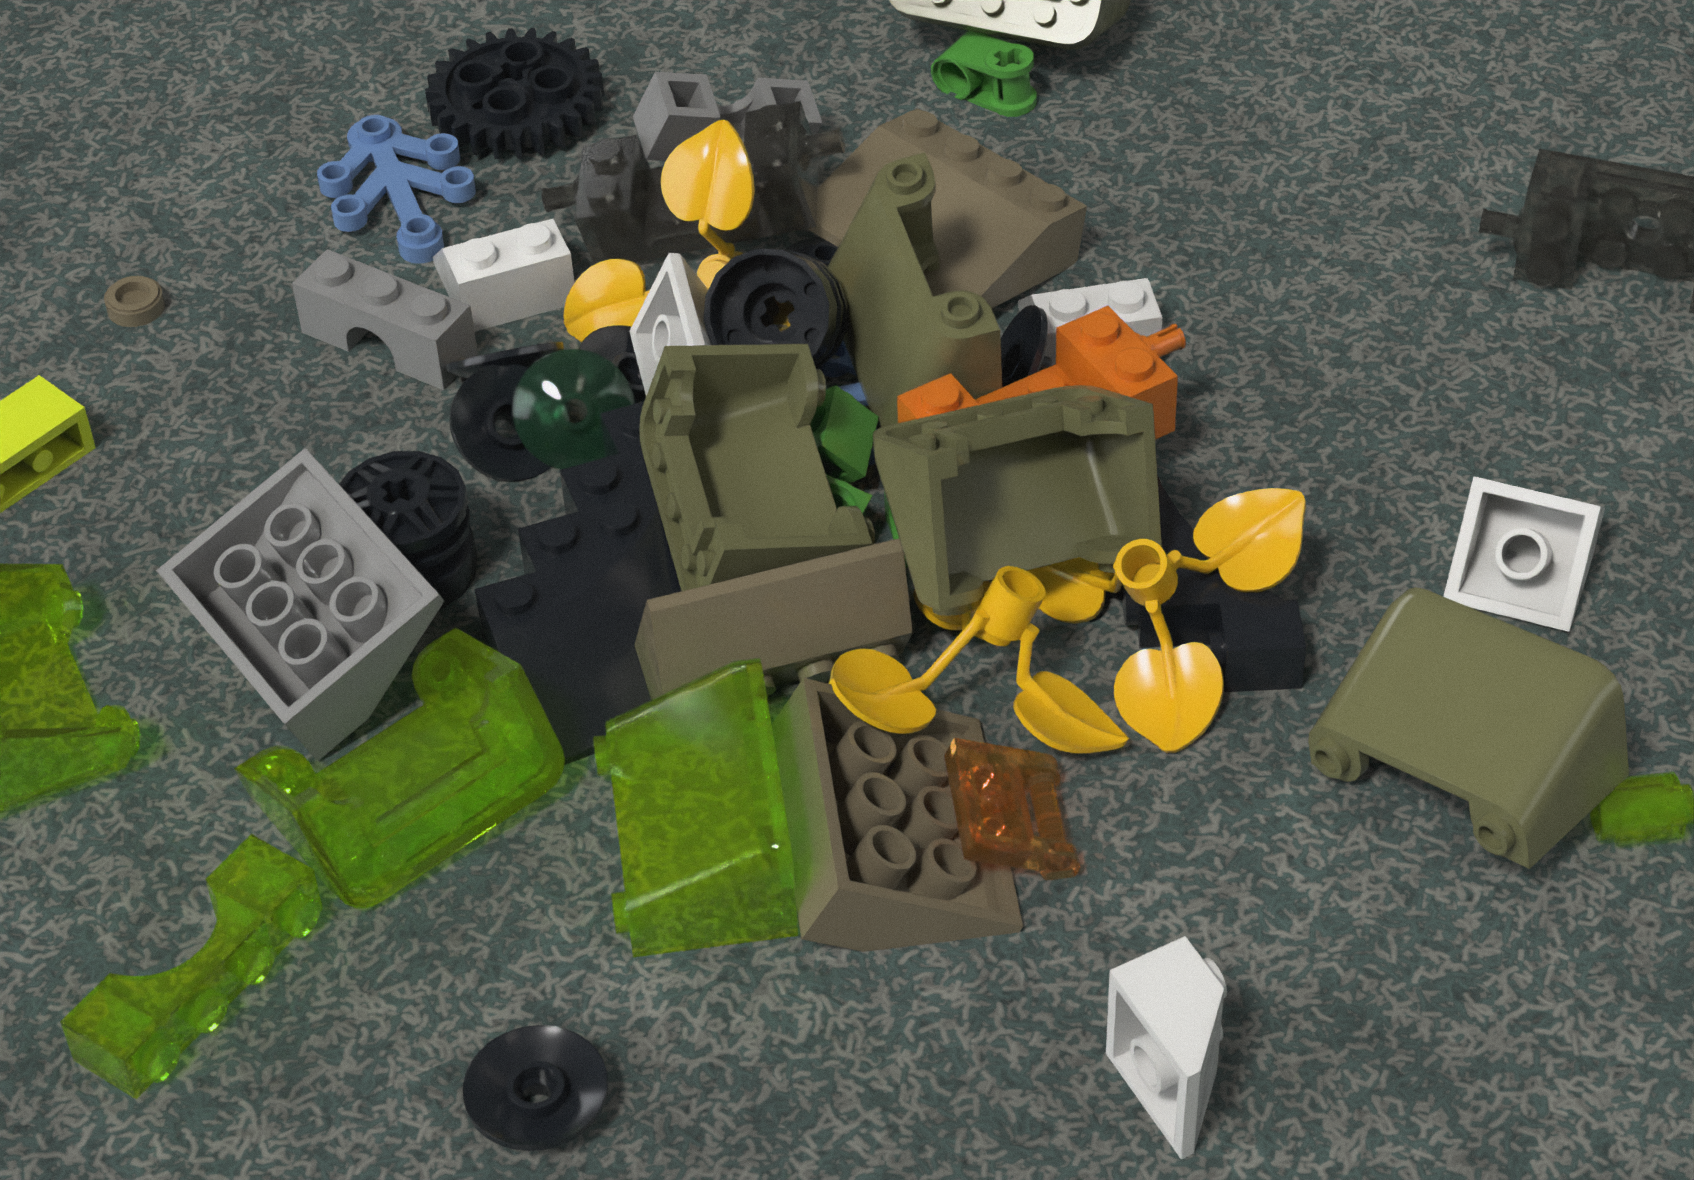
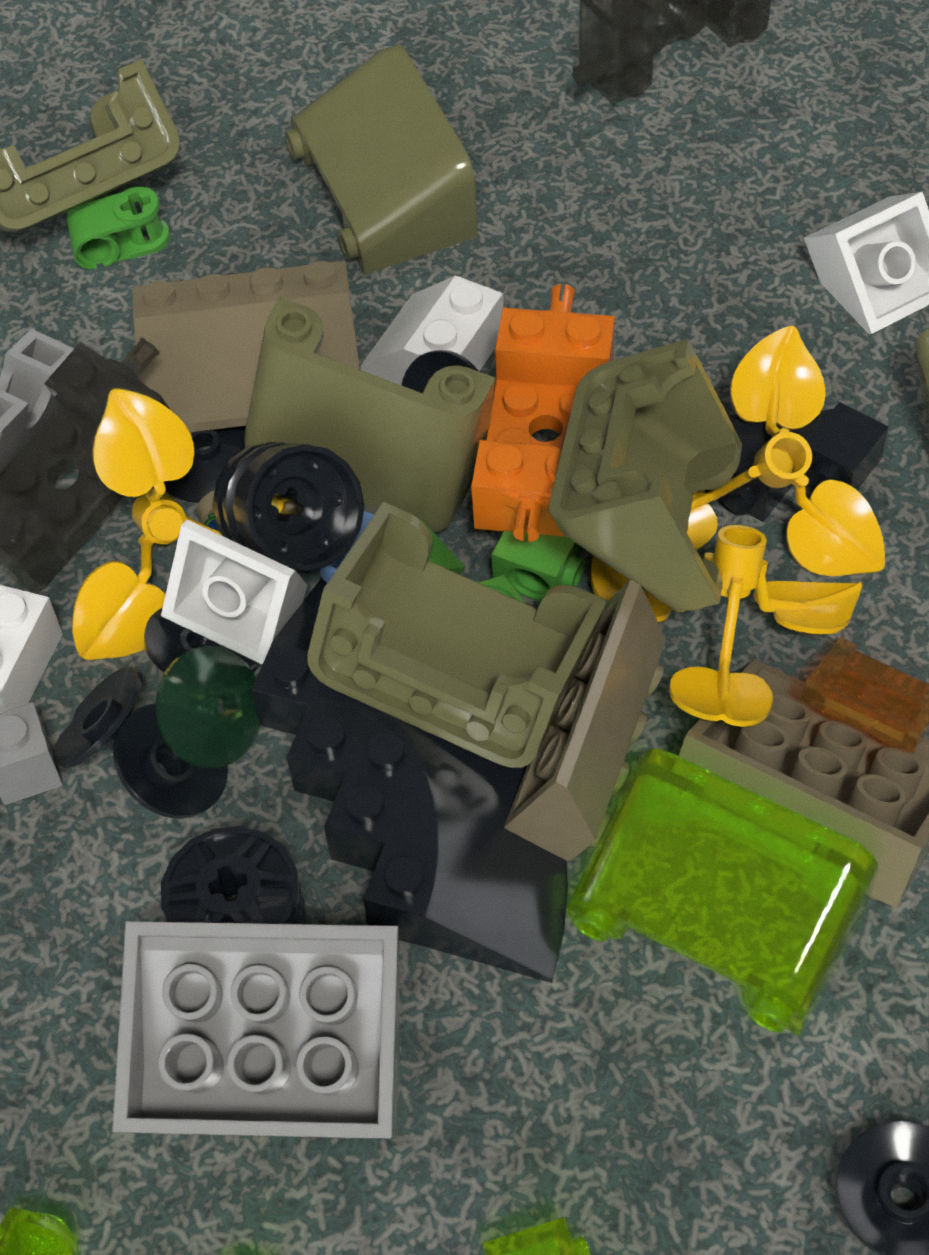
camera: 50 degrees left, 10 degrees up
(422, 783) = (500, 1075): clear neon green windscreen -> none
(1233, 170) = (388, 163): none -> olive windscreen

